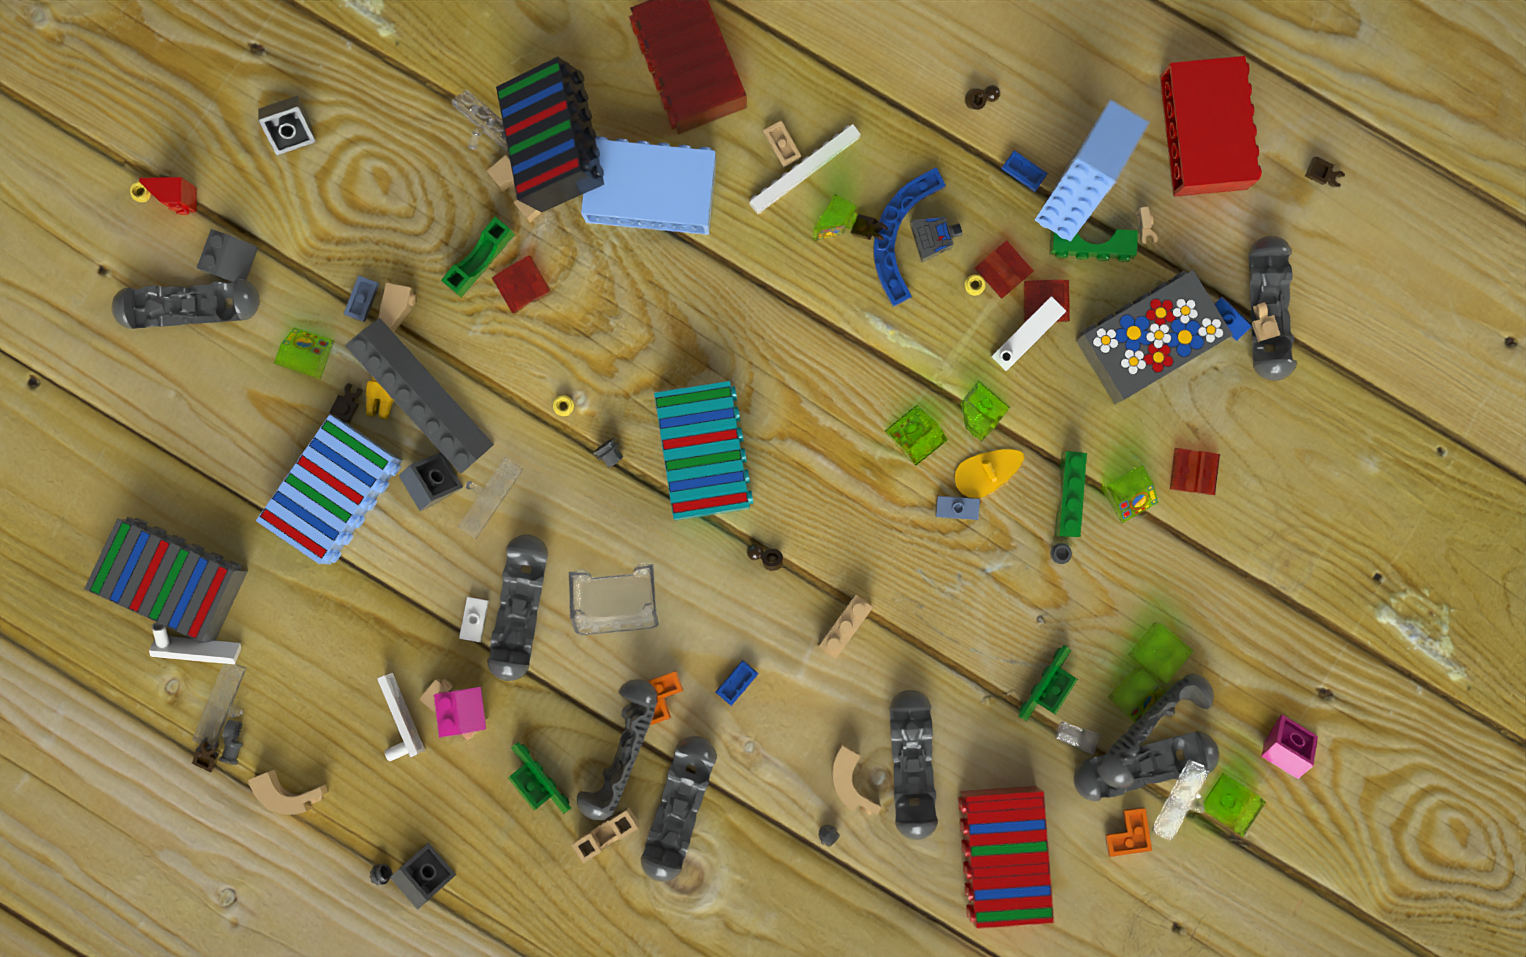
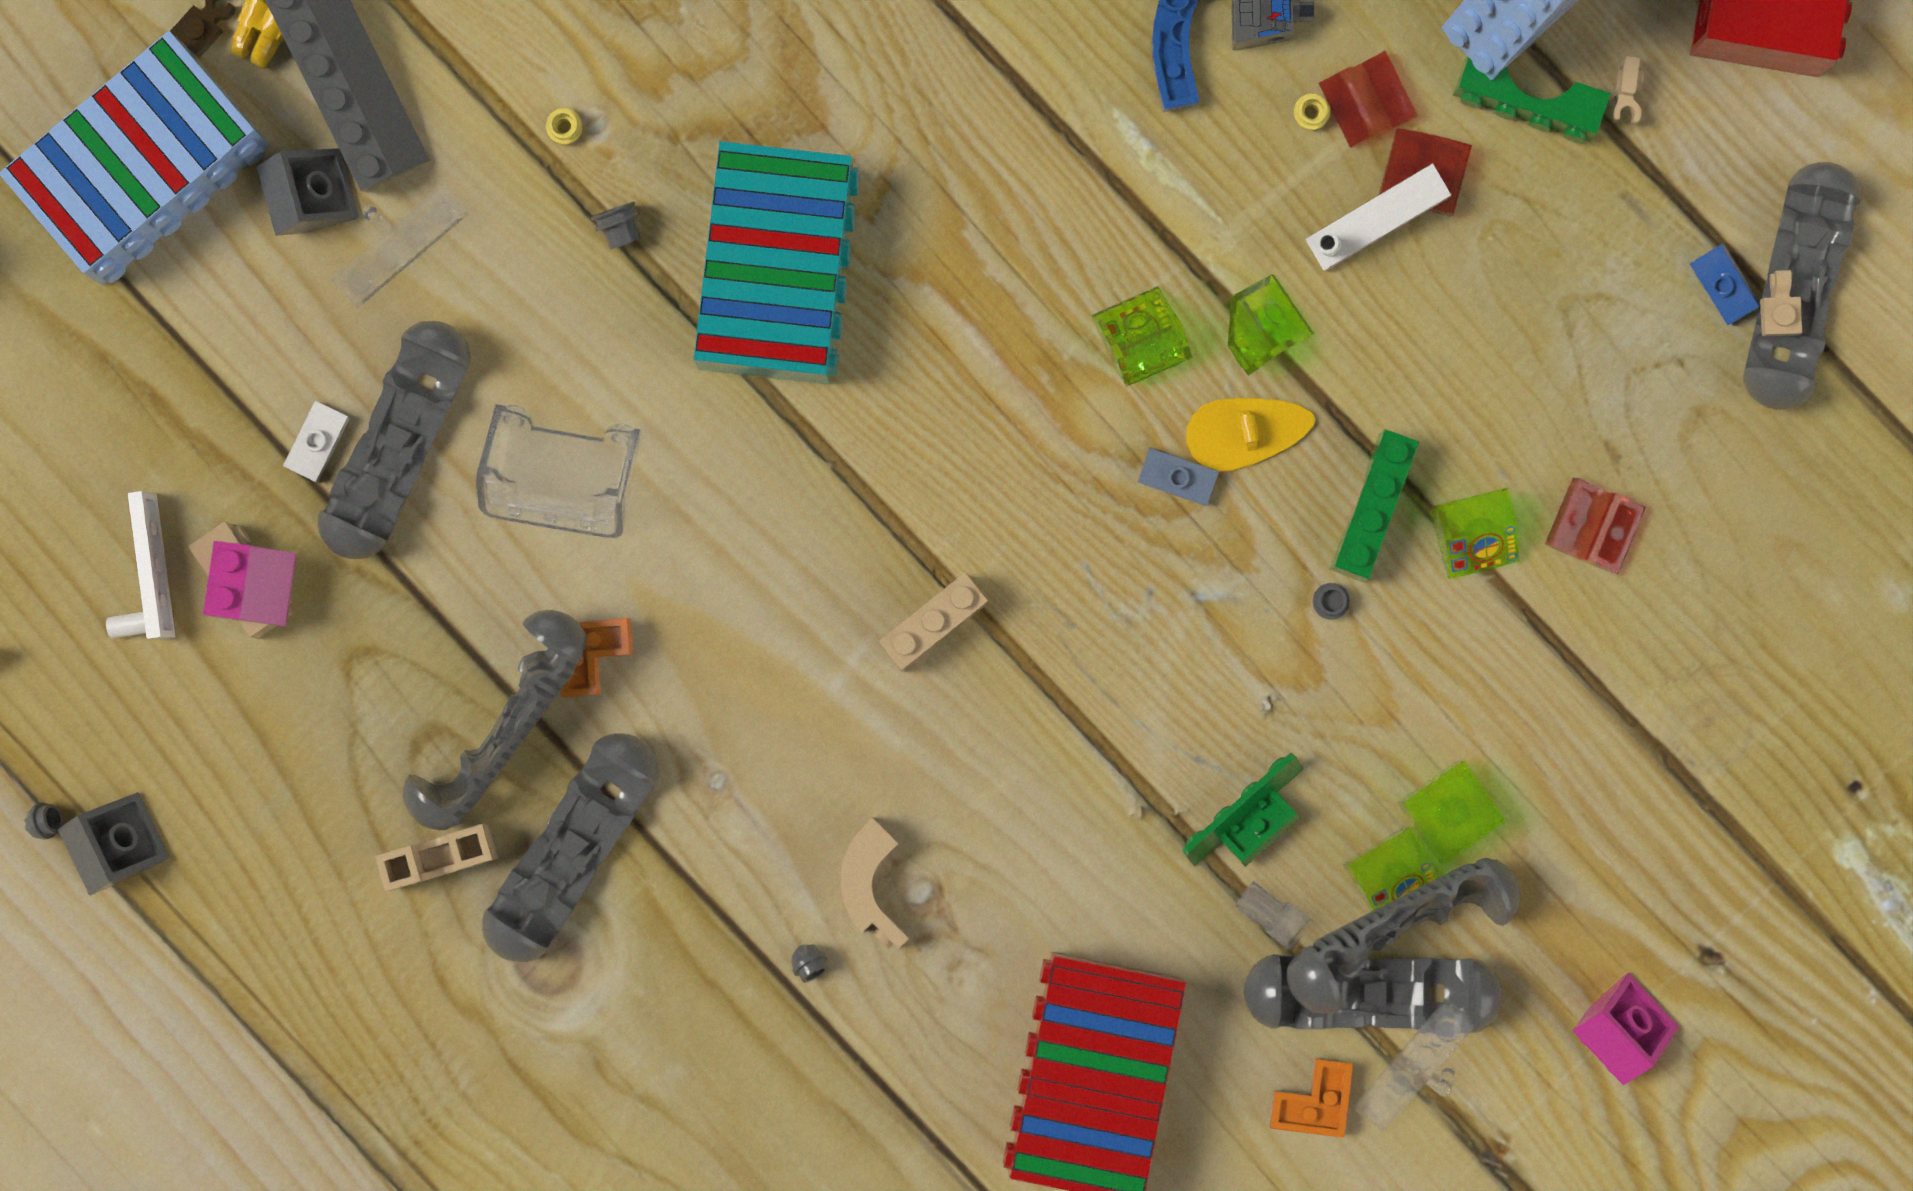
camera: 15 degrees right, 0 degrees up
(533, 783) = (340, 740): green bracket -> none
(736, 682) = (726, 667): blue plate -> none
(756, 552) = (819, 459): dark brown plate -> none
(913, 770) = (985, 870): dark grey piece -> none
(1153, 336) = (1586, 277): brick -> none
(1233, 804) = (1502, 1100): clear neon green slope -> none

